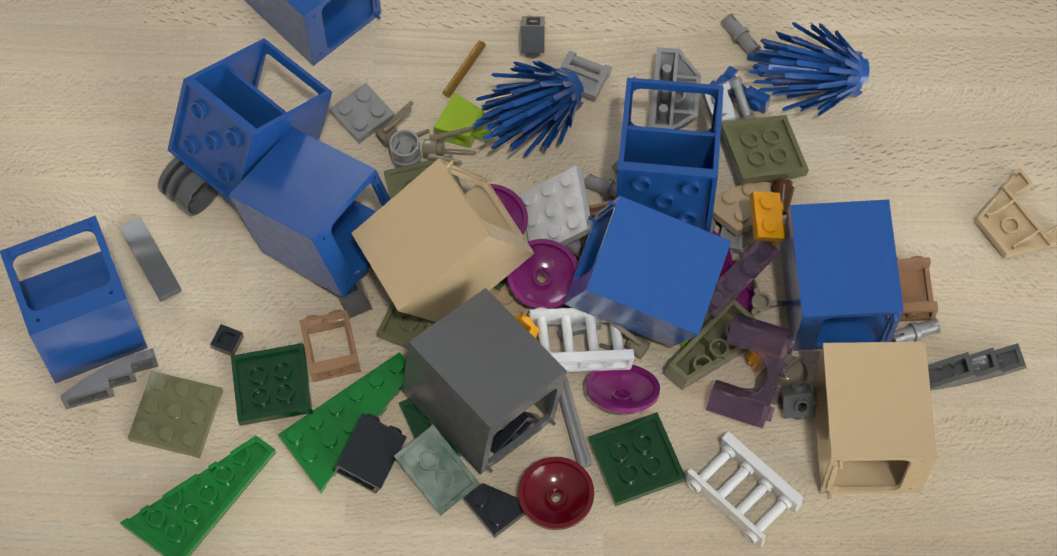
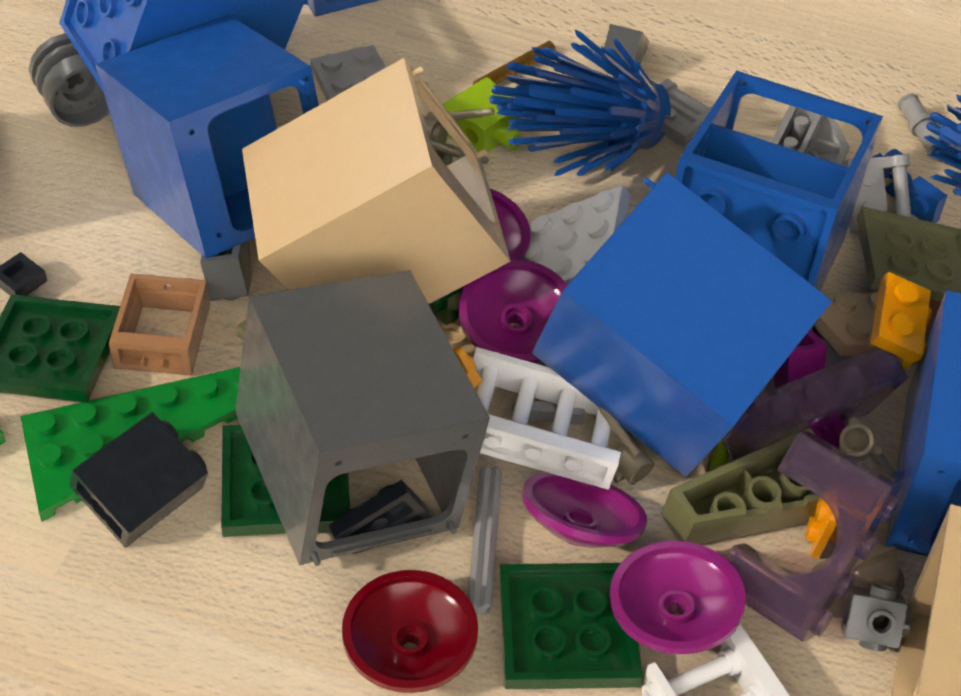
camera: 15 degrees right, 15 degrees down
(436, 470) = (230, 535): plate -> none
(494, 508) = (301, 628): black wing -> none
(688, 414) = (679, 580): none -> magenta dish

